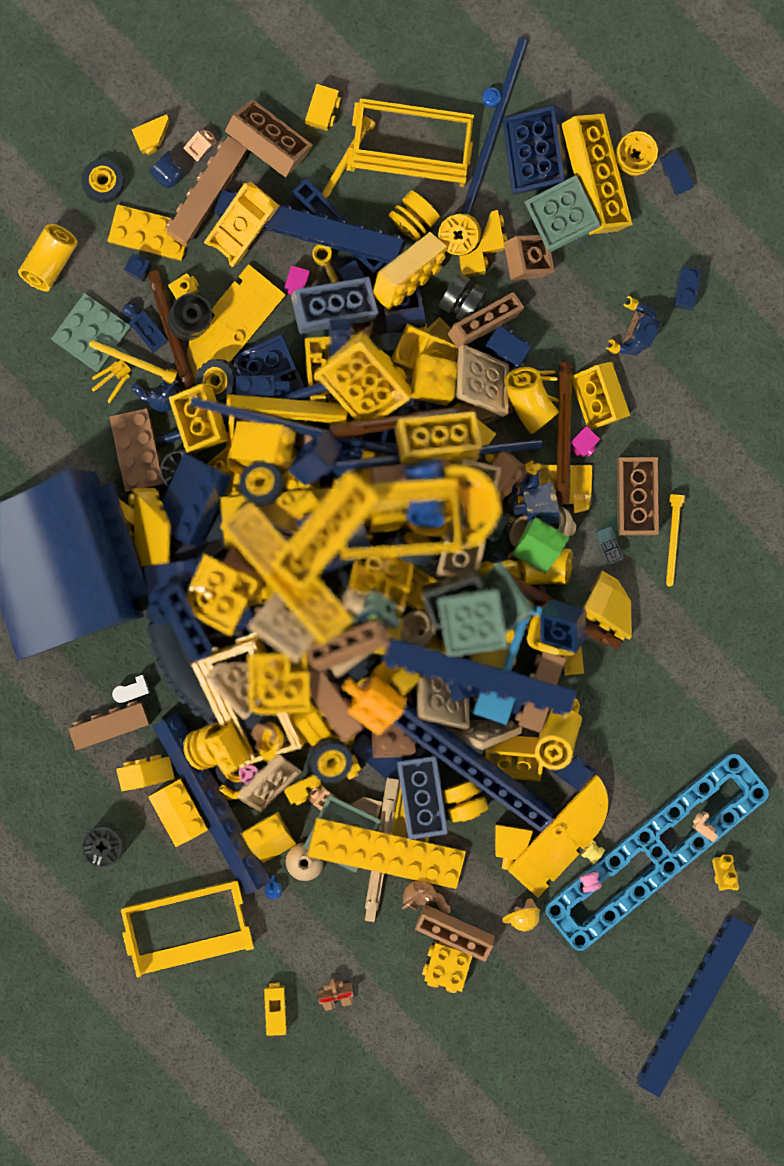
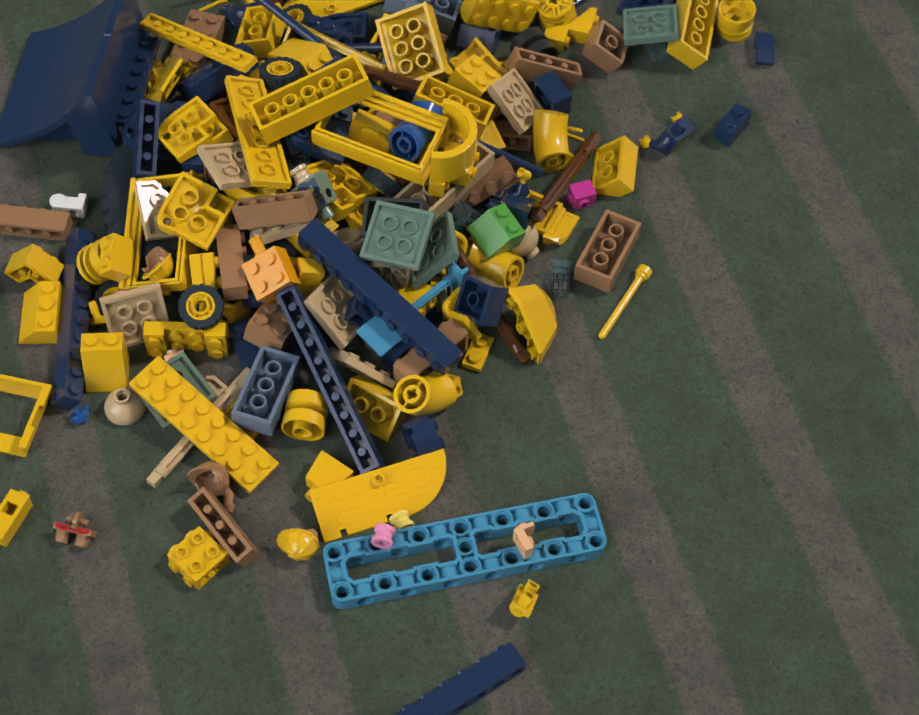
camera: 25 degrees right, 30 degrees down
(164, 487) = (198, 42): none -> yellow tile

